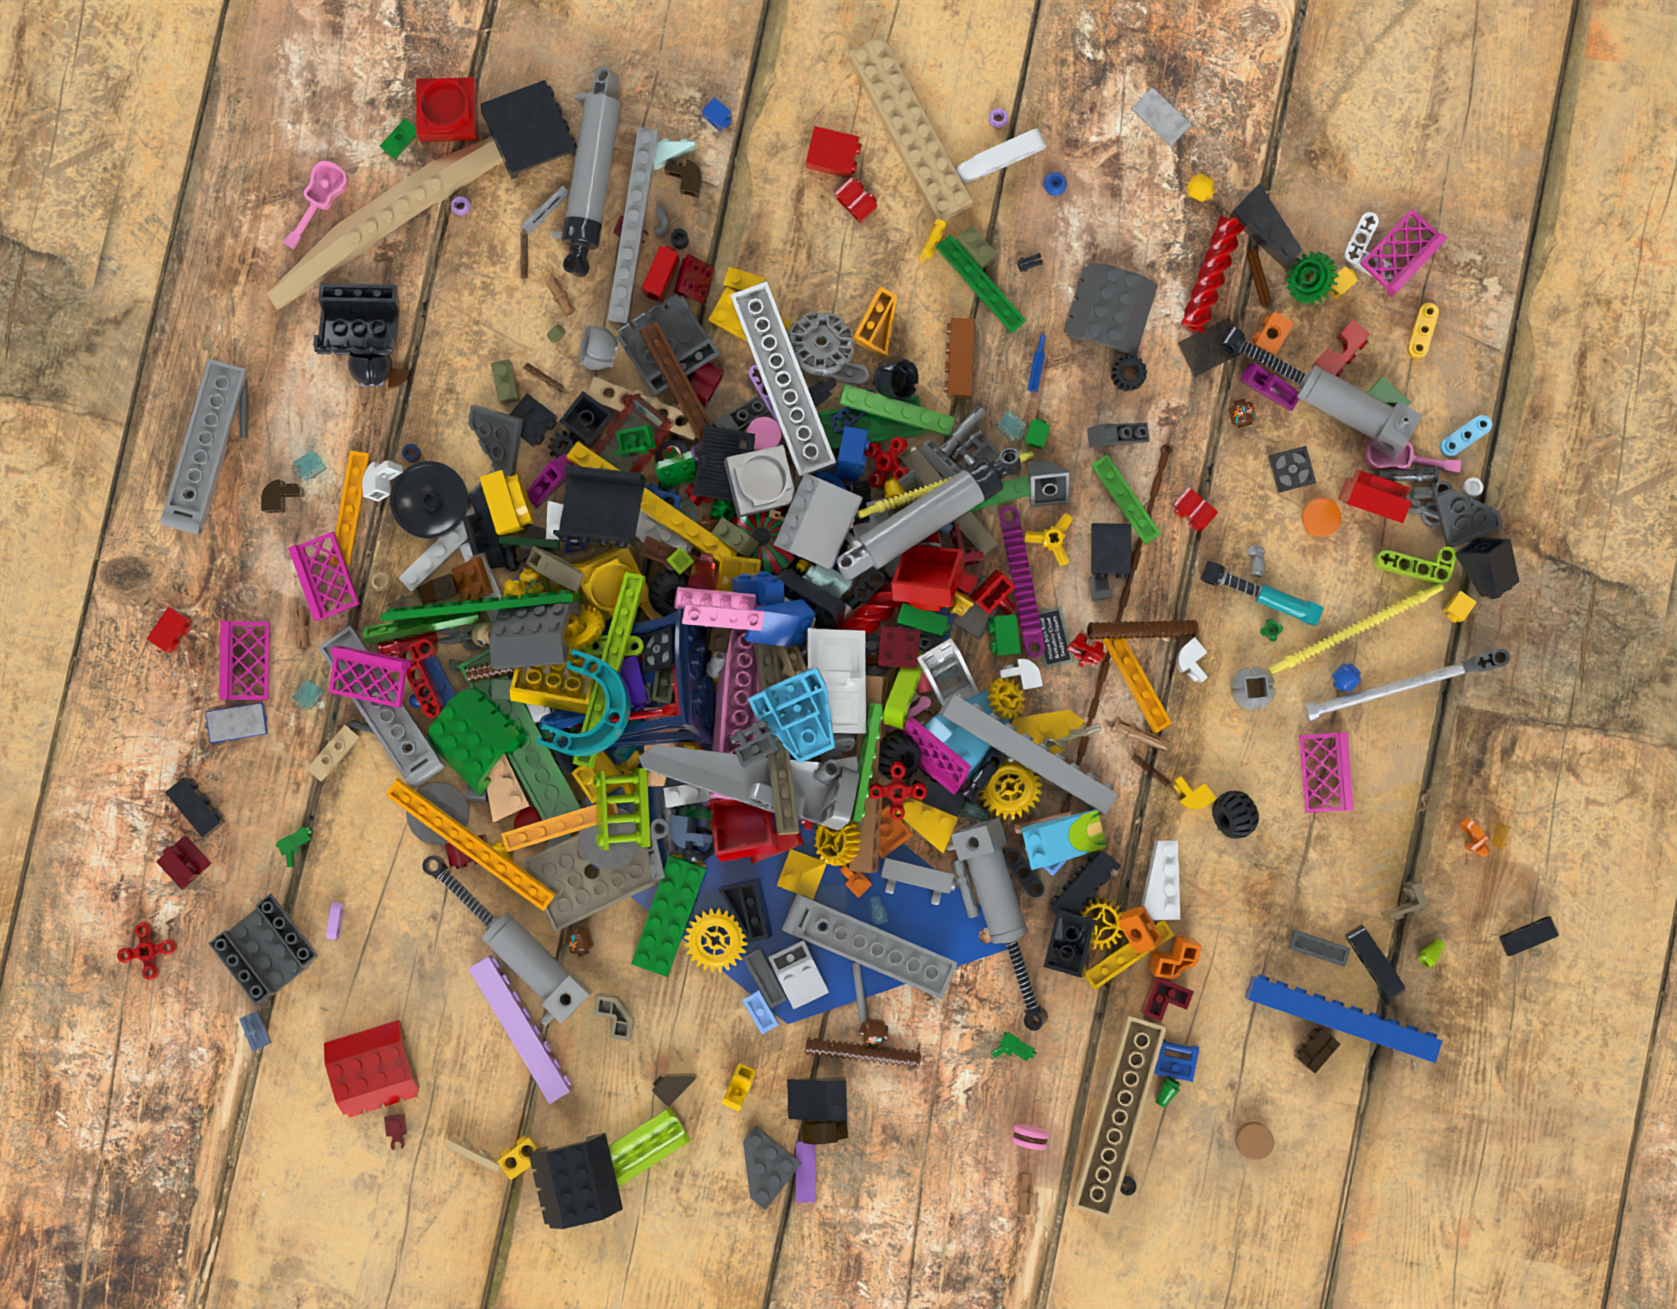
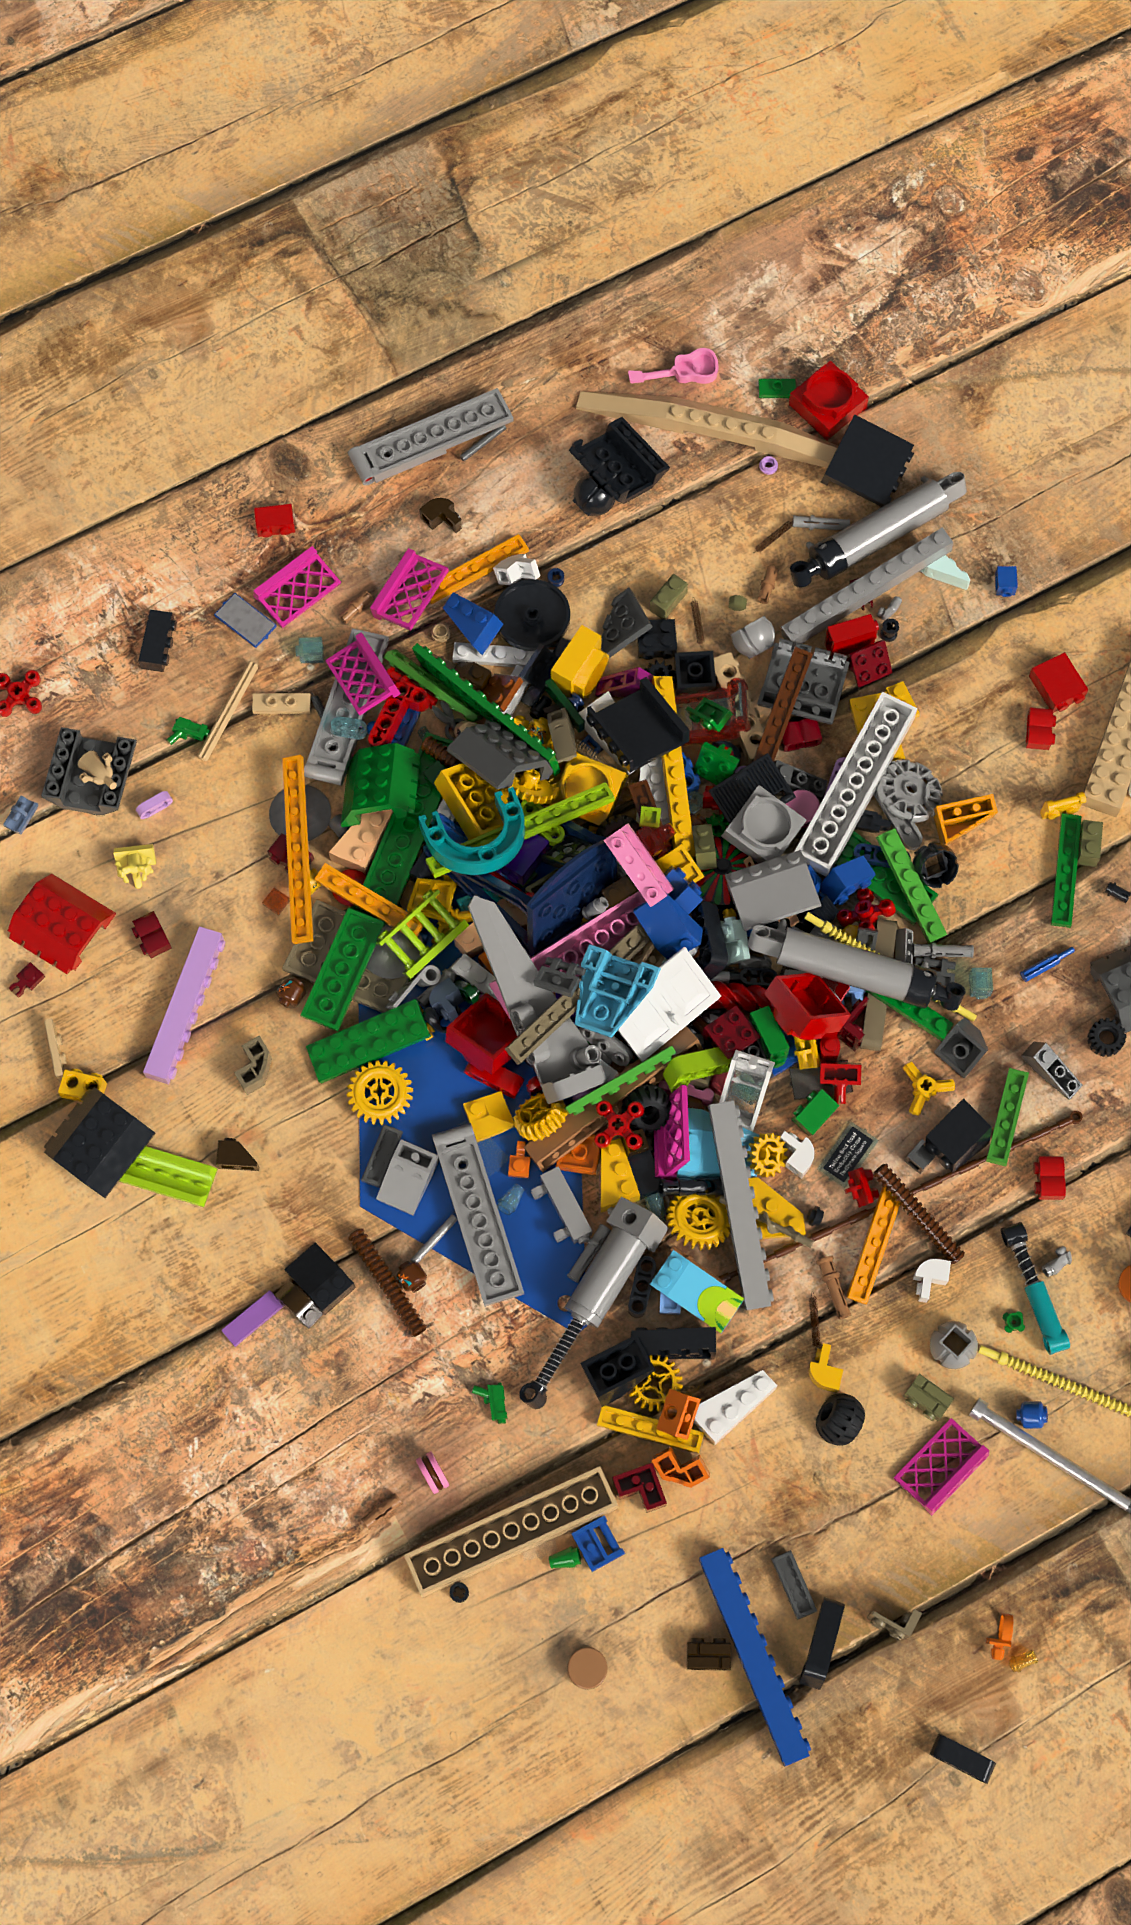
camera: 55 degrees right, 15 degrees down
(183, 862) = (107, 665): dark red bracket -> none
(274, 944) = (95, 767): none -> tan piece
(303, 799) = (227, 711): none -> tan axle
(309, 466) = (481, 516): clear light blue brick -> none
(367, 972) = (133, 861): none -> light yellow piece
(396, 552) = (473, 621): none -> blue wedge
(398, 377) = (603, 524): reddish brown tile -> none
(407, 726) = (348, 728): none -> clear light blue beam
(441, 1008) = (151, 934): none -> dark red brick
(495, 891) = (276, 901): none -> clear orange plate
(520, 951) = (239, 1007): light grey piece -> none
(533, 532) = (575, 700): none -> dark blue bush
(597, 889) = (342, 969): none -> green plate
(690, 175) = (942, 599): dark brown brick -> none
(738, 1087) = (277, 1207): yellow brick -> none
(749, 908) = (427, 1096): black wedge -> none
(760, 1012) = (351, 1175): light blue plate -> none
(767, 1166) = (231, 1284): dark grey plate -> none
(960, 358) = (996, 901): dark orange brick -> none
(1022, 579) = (869, 1093): magenta gear -> none
(1037, 433) = (993, 1007): green brick -> none
(1078, 702) = (815, 1216): none -> black plate
(1273, 739) = (928, 1398): none -> olive brick
(1431, 953) = (873, 1685): lime cone -> none

